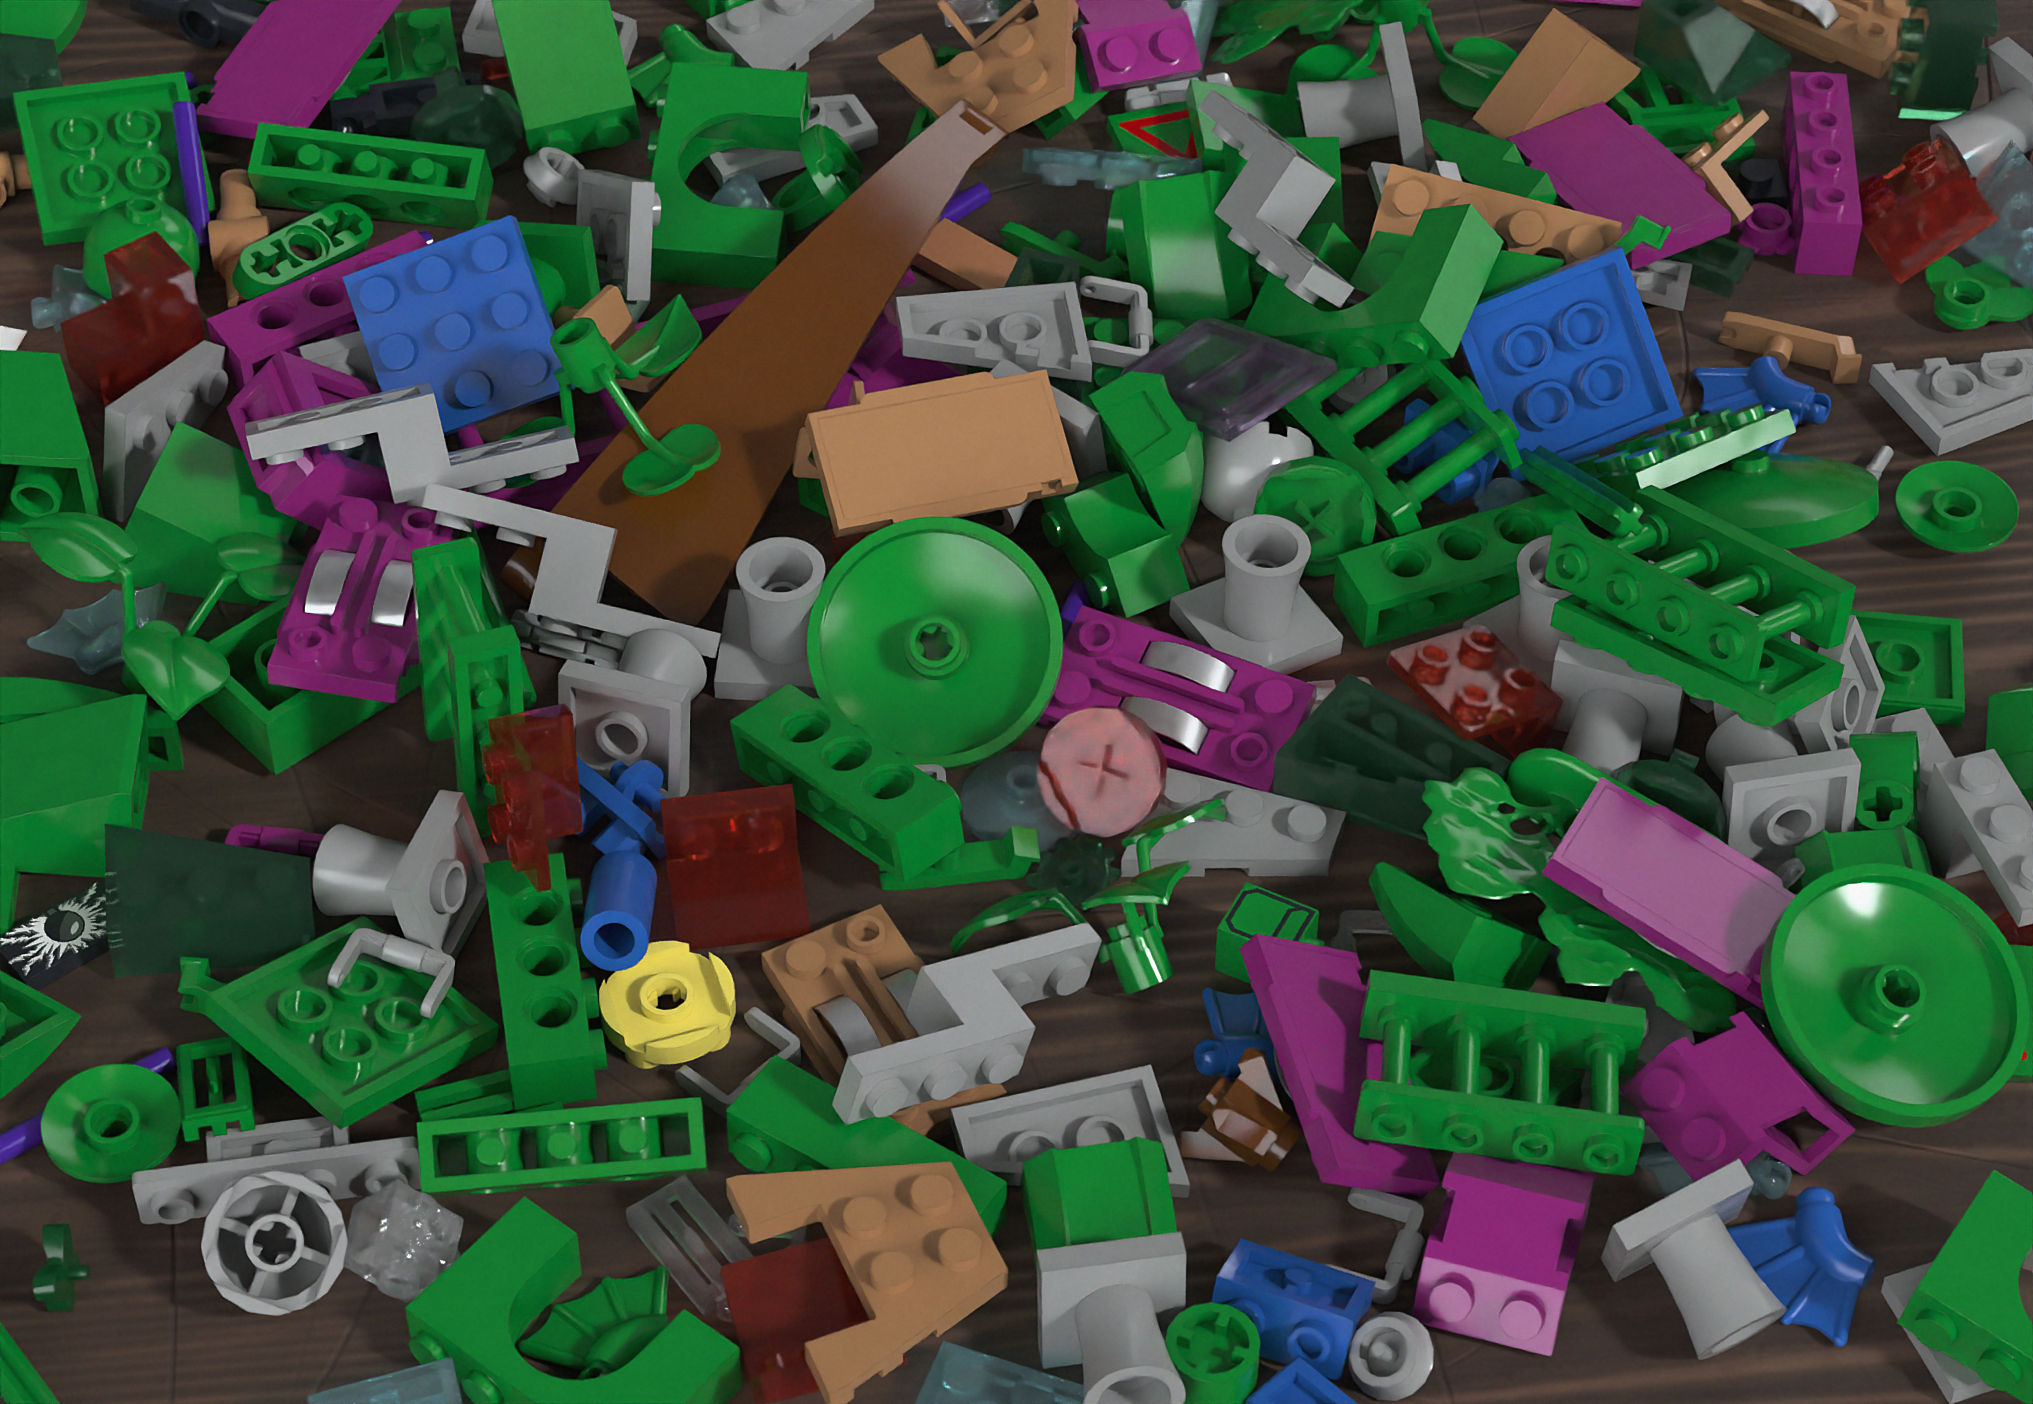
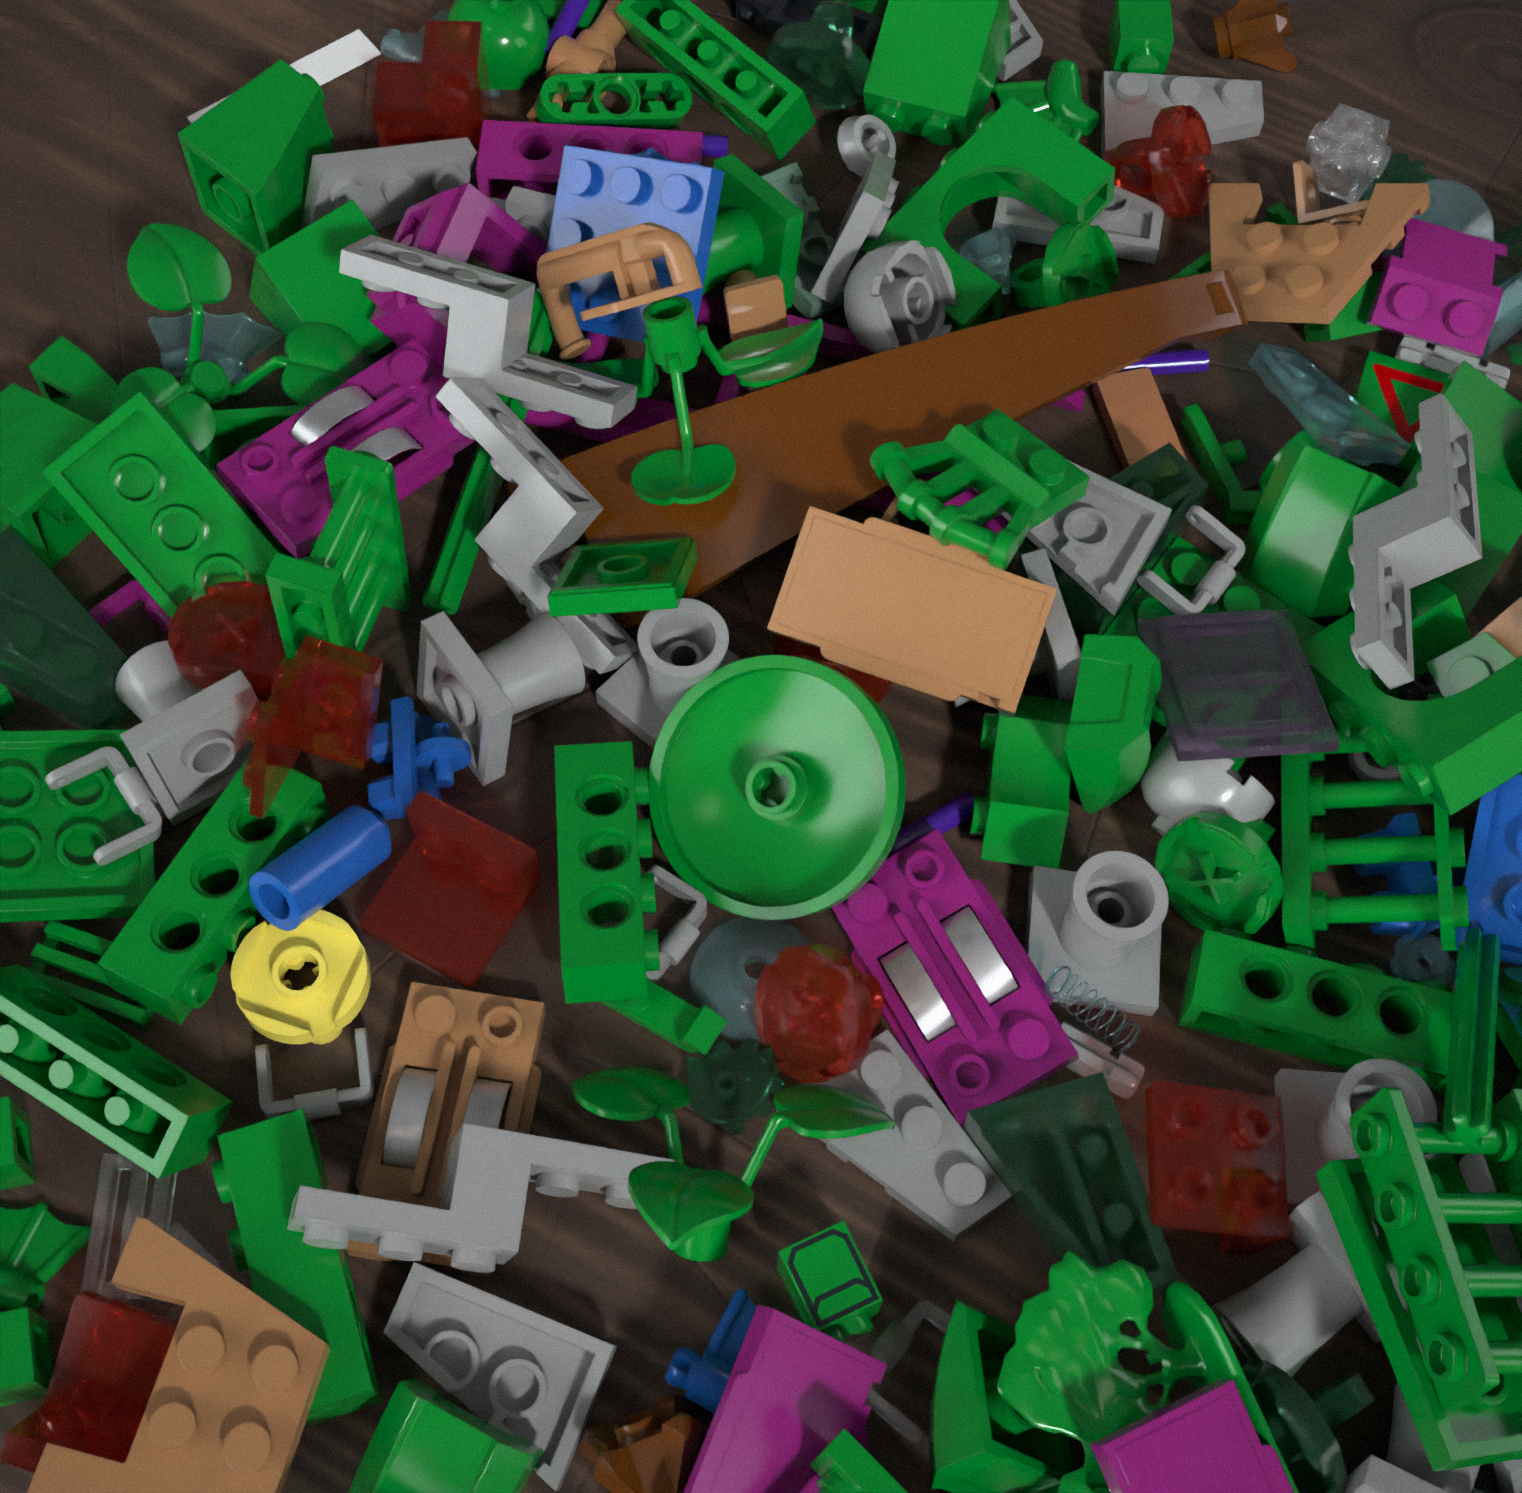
camera: 35 degrees right, 15 degrees up
(269, 734) = (161, 506): none -> green plate
(390, 786) = (225, 633): none -> clear red tile
(498, 311) = (630, 258): none -> medium nougat piece
(684, 563) = (623, 577): none -> green tile
(709, 260) = (898, 296): none -> light grey cylinder
(832, 56) = (1171, 160): none -> clear red tile
(922, 311) = (997, 459): none -> green plate
(1326, 673) = (1122, 1027): none -> clear light blue piece

